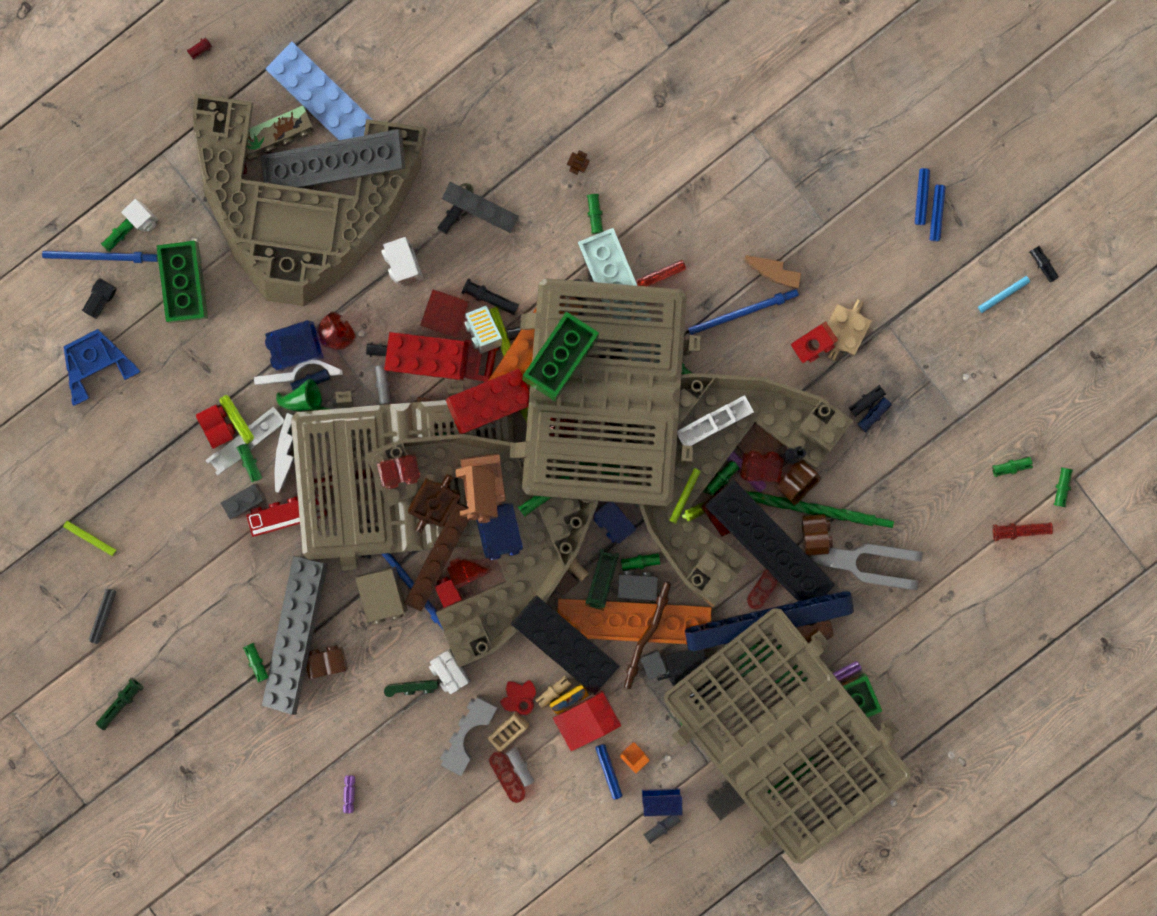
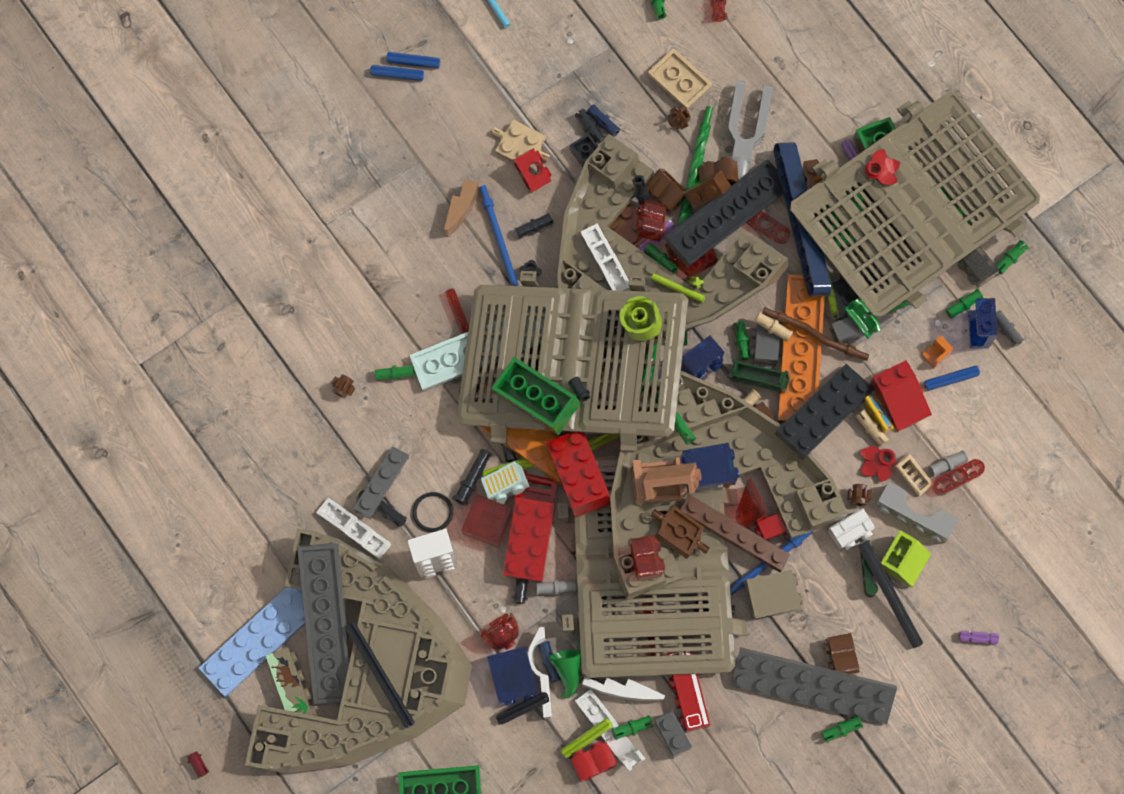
camera: 80 degrees left, 15 degrees down
(262, 356) = (522, 708): none -> black axle
(284, 217) = (380, 675): none -> black axle
(385, 708) = (890, 594): none -> black axle
(421, 723) = (905, 558): none -> lime slope
(434, 182) = (353, 528): none -> white slope
(438, 265) = (427, 495): none -> black tyre
(484, 679) = (859, 495): none -> reddish brown gear
(568, 399) = (579, 389): none -> black pin
(633, 467) = (630, 317): none -> lime brick
(650, 592) = (773, 326): none -> tan pin
(665, 679) = (856, 311): none -> green hinge
(686, 651) = (831, 300): none -> lime piece
(686, 785) = (963, 304): none -> green pin
(713, 345) = (531, 264): none -> black plate
(738, 833) = (1011, 257): none -> green pin
(756, 347) = (534, 225): none -> black pin
(795, 523) = (707, 189): none -> reddish brown brick
(821, 705) = (884, 168): none -> red plate
(841, 396) = (583, 148): none -> black piece
(878, 492) = (679, 118): none -> reddish brown gear
(923, 493) = (680, 79): none -> tan plate

